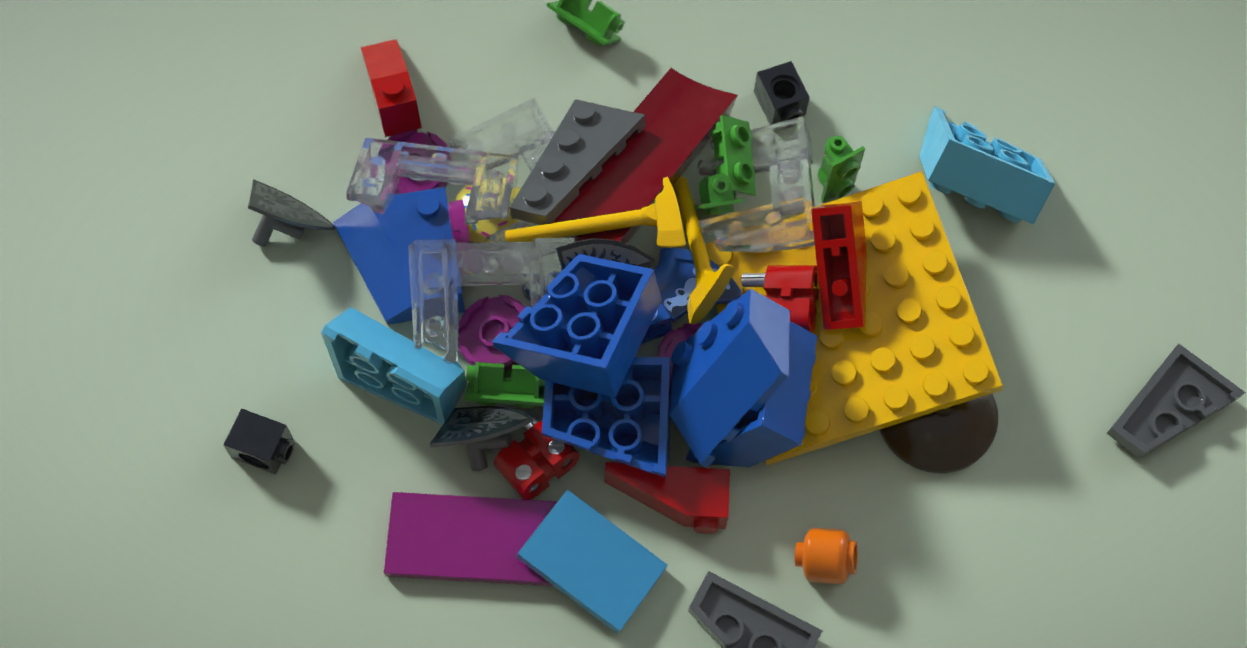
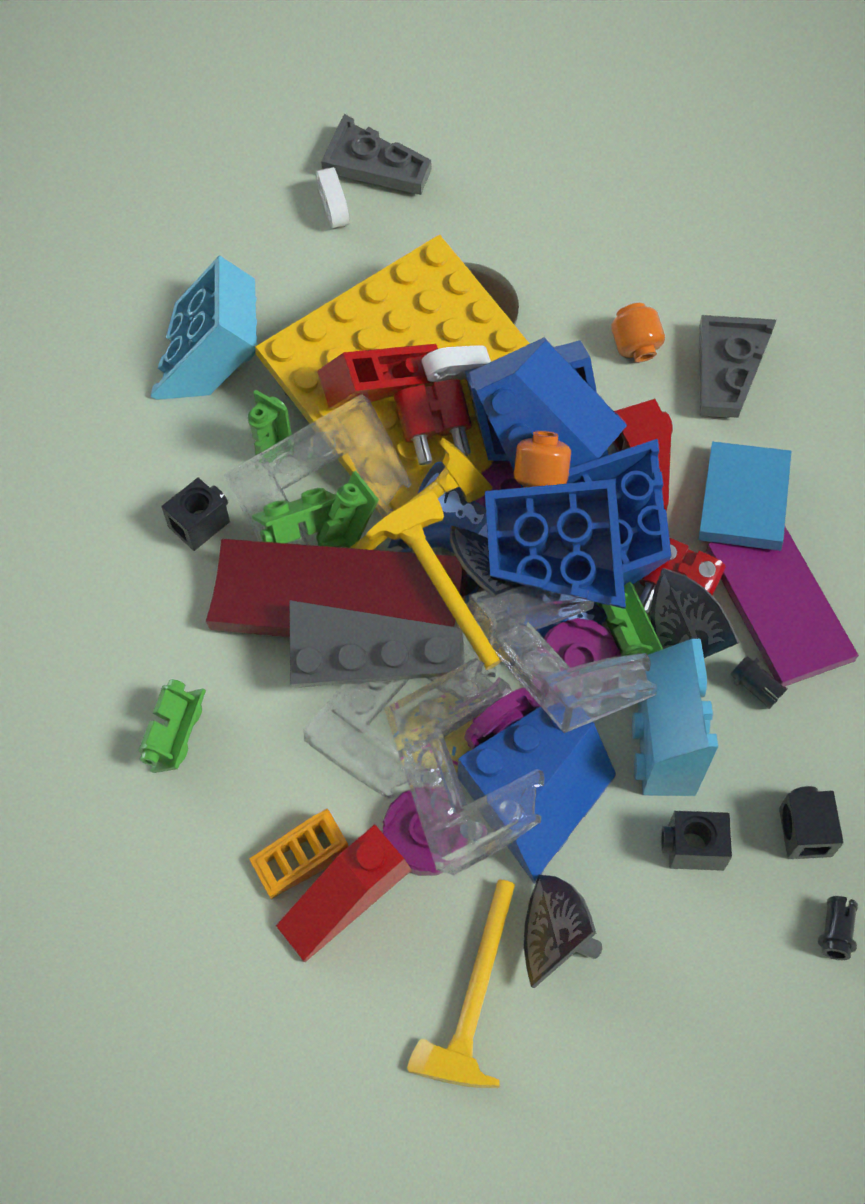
camera: 110 degrees left, 5 degrees down
(168, 419) = (837, 939): none -> black pin
(235, 114) = (456, 1062): none -> yellow piece
(298, 363) = (711, 827): none -> black brick
(403, 472) = (756, 679): none -> black pin
(440, 95) = (291, 841): none -> light orange slope
(669, 340) = (542, 460): none -> orange head
(828, 332) = (453, 362): none -> white beam
(1125, 339) = (333, 197): none -> white beam

